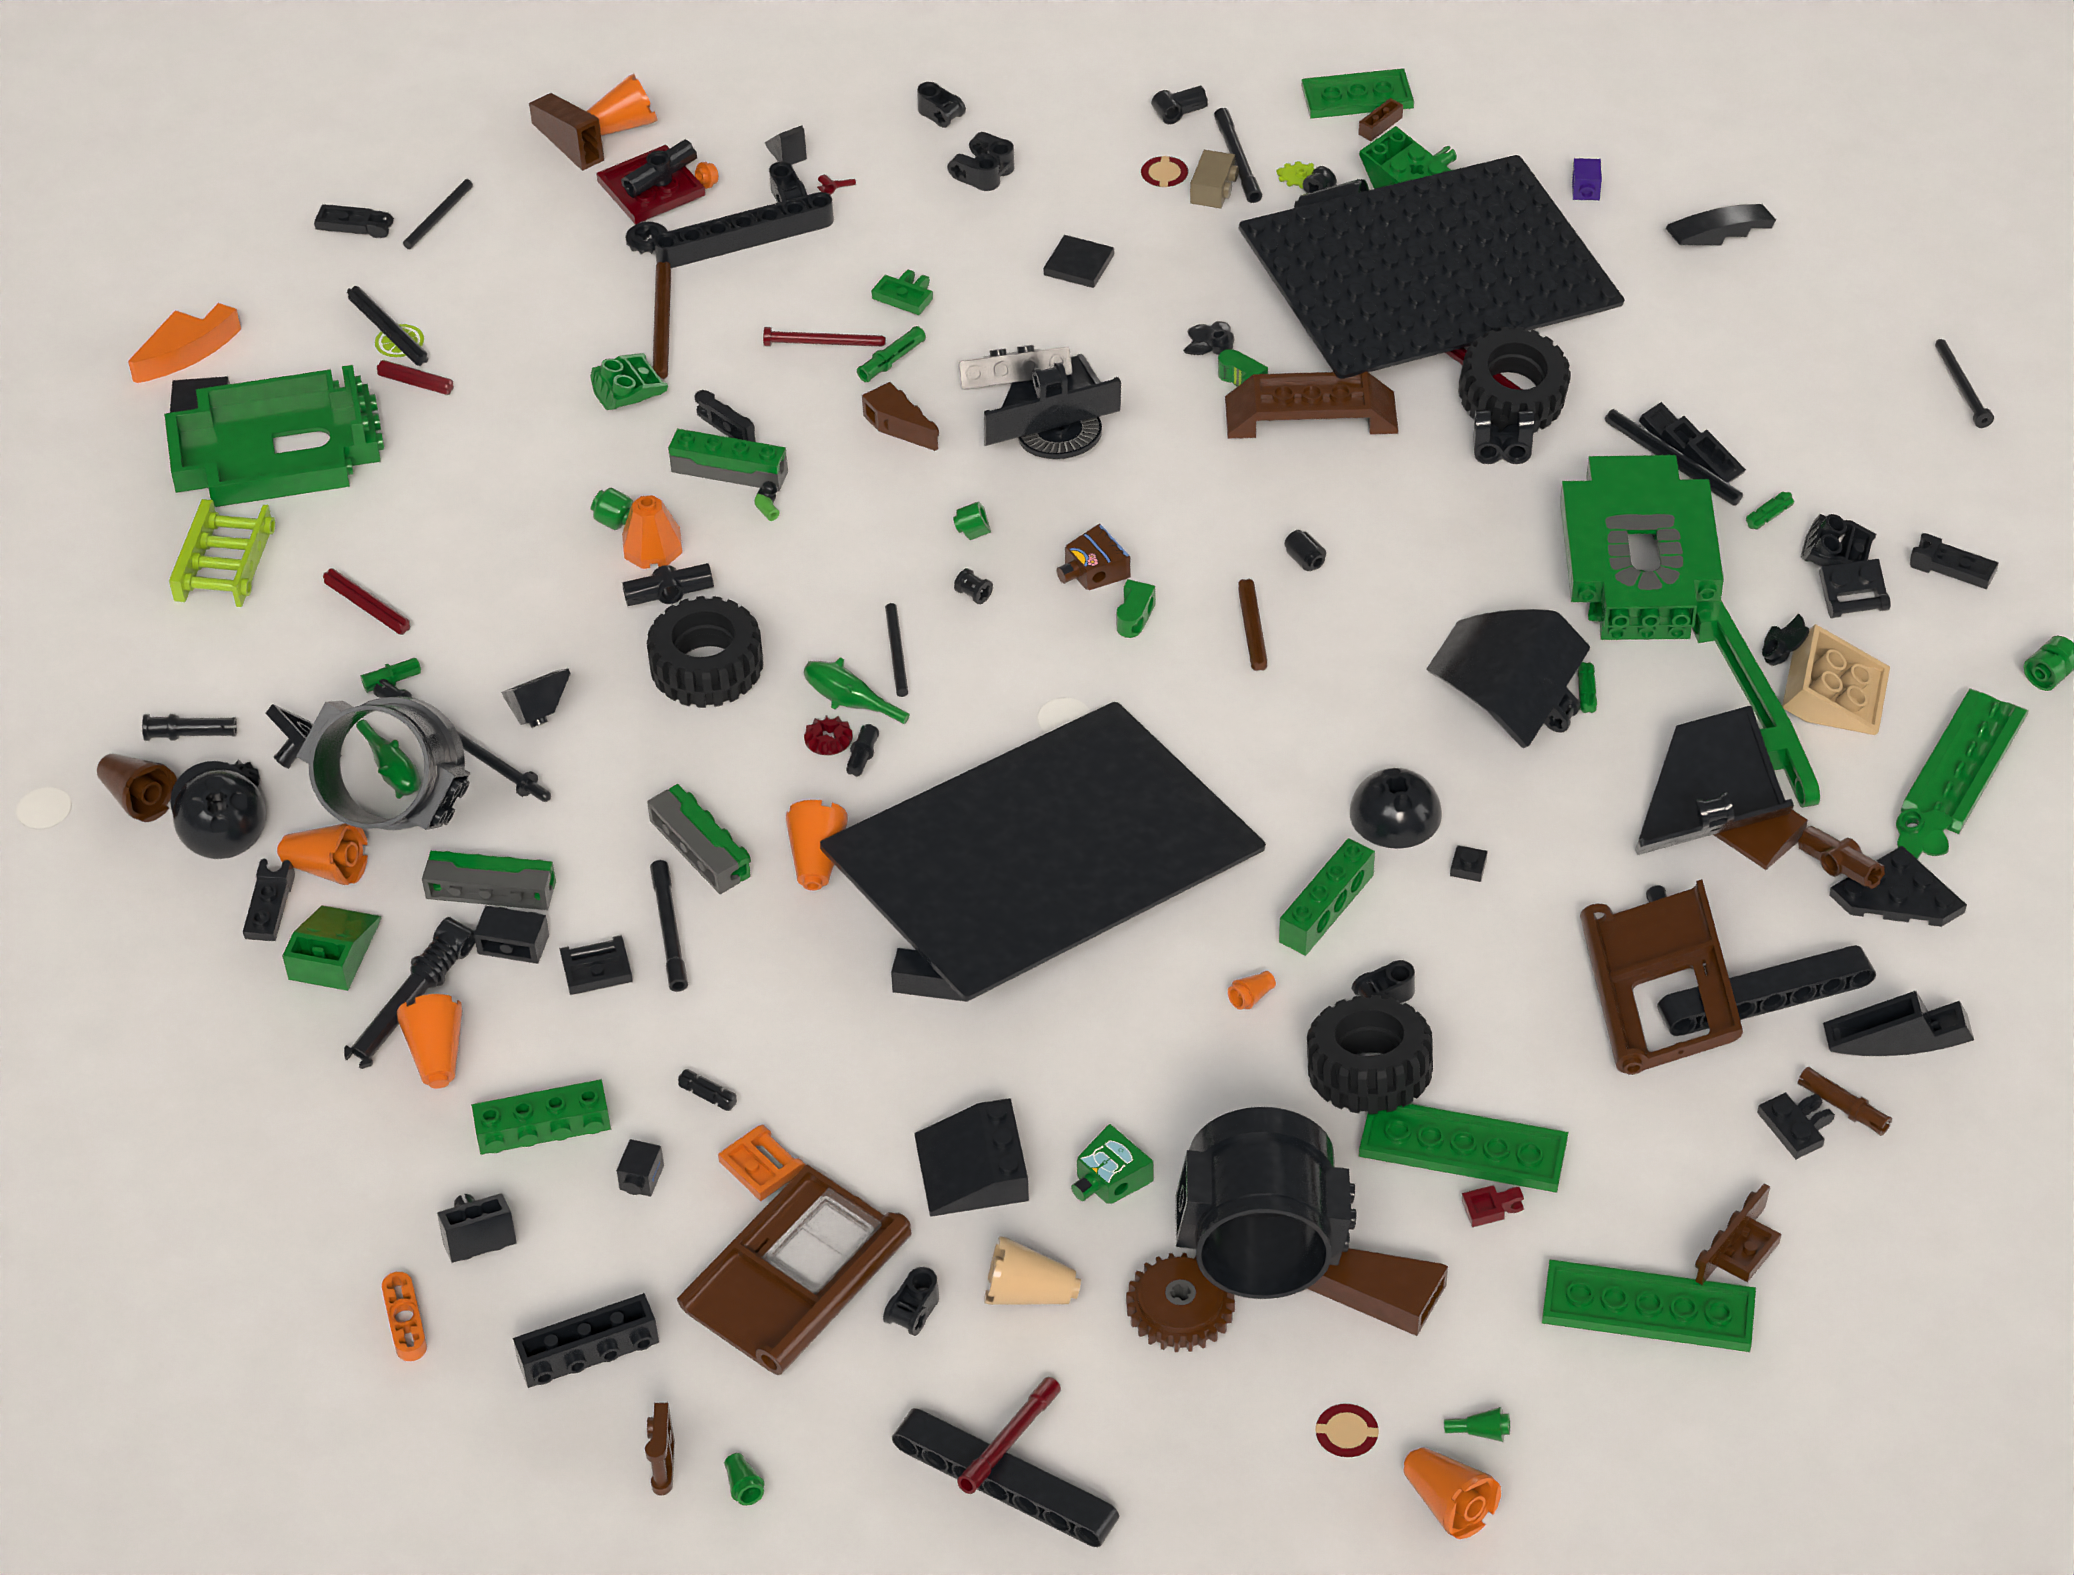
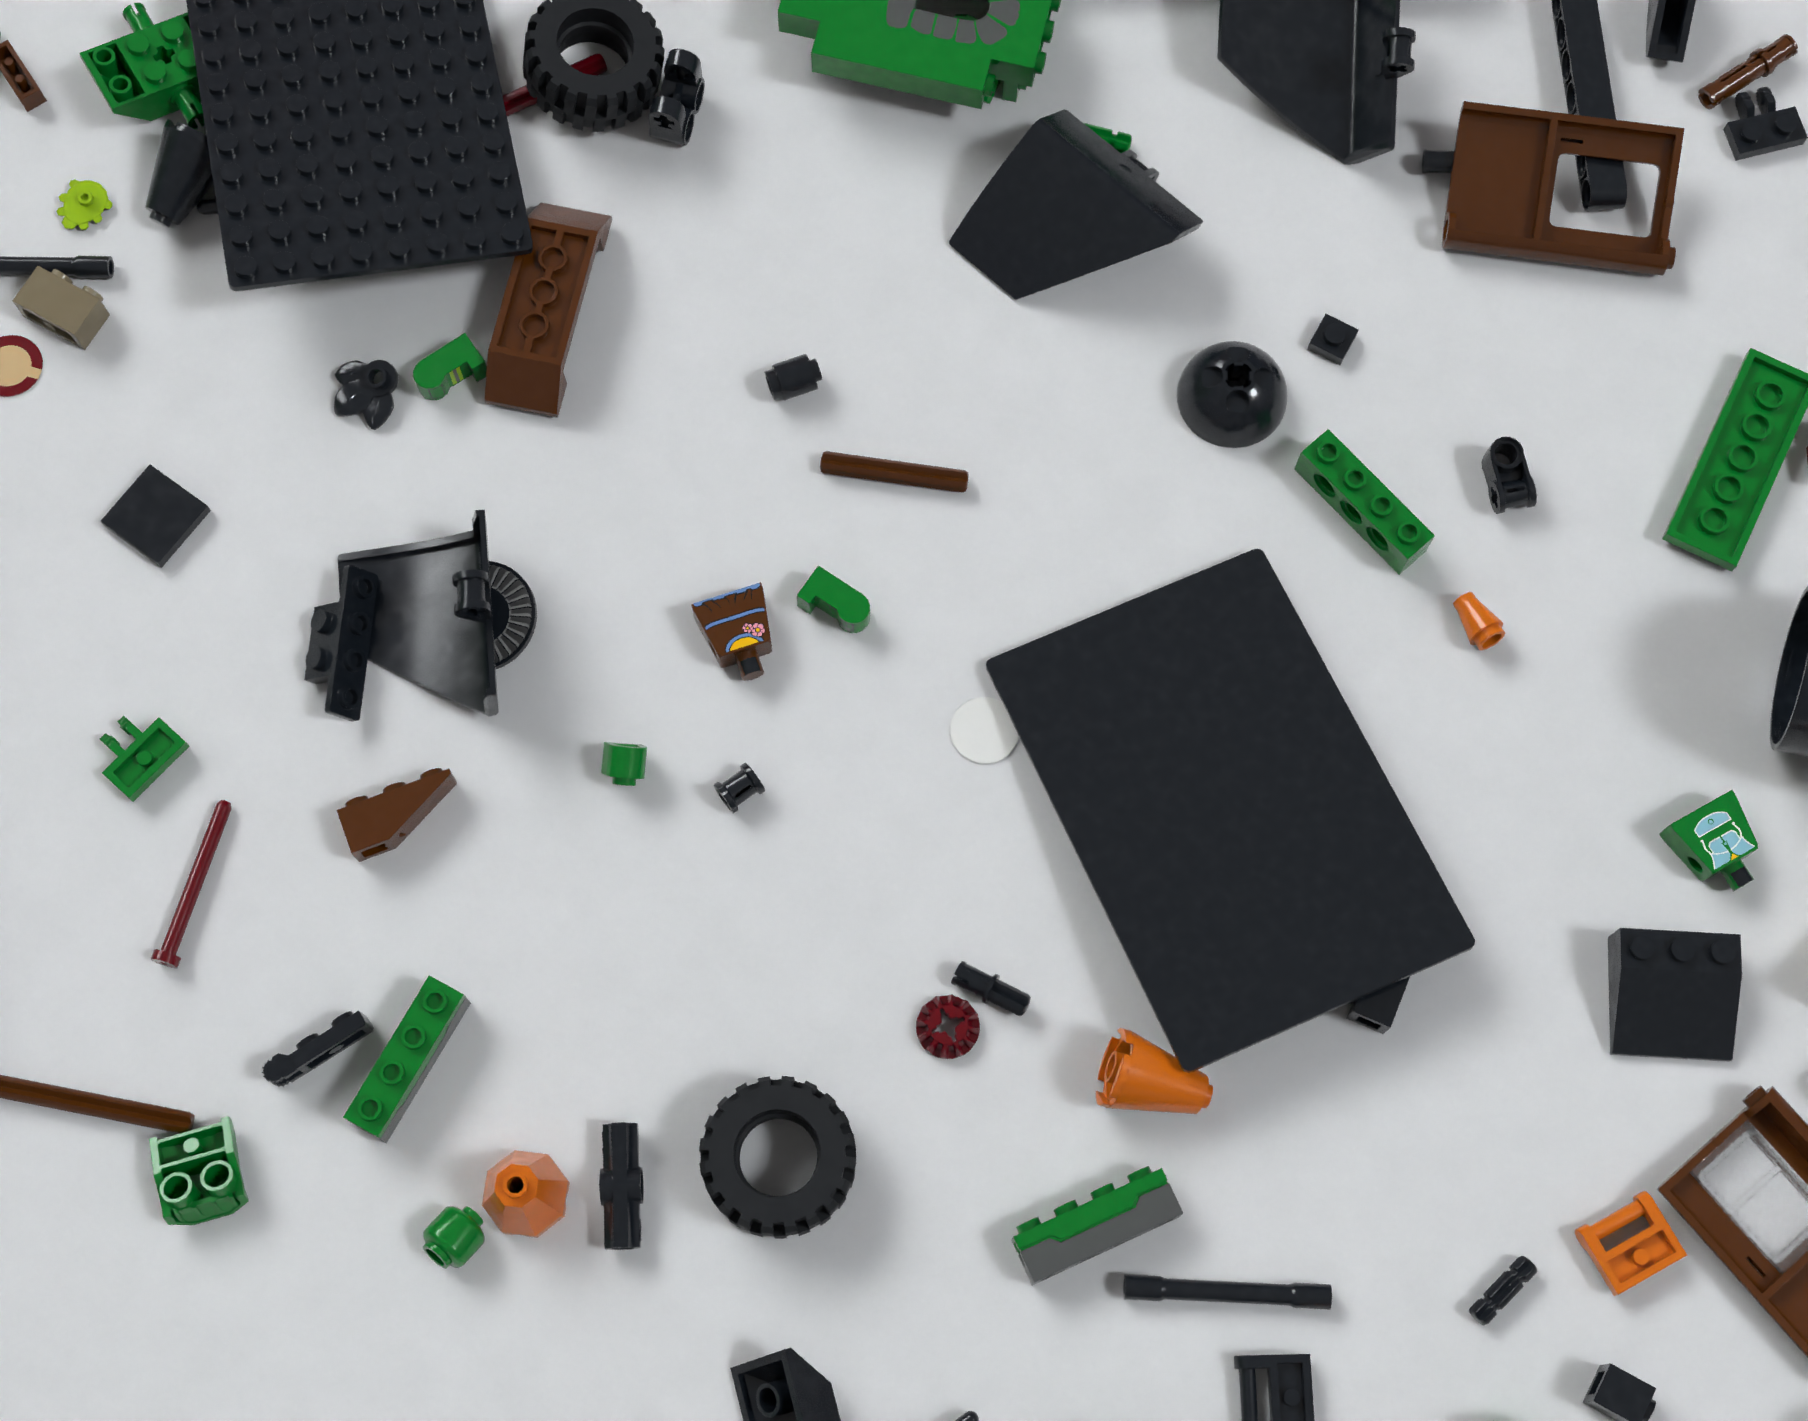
camera: 80 degrees left, 25 degrees up
(765, 499) = (491, 1025): bright green arm -> none
(847, 690) = (883, 985): green piece -> none
(883, 359) = (268, 810): green pin -> none
(896, 650) = (817, 909): black bar -> none
(1319, 179) = (119, 180): black wheel -> none
(1370, 1081) = (1639, 471): black tyre -> none

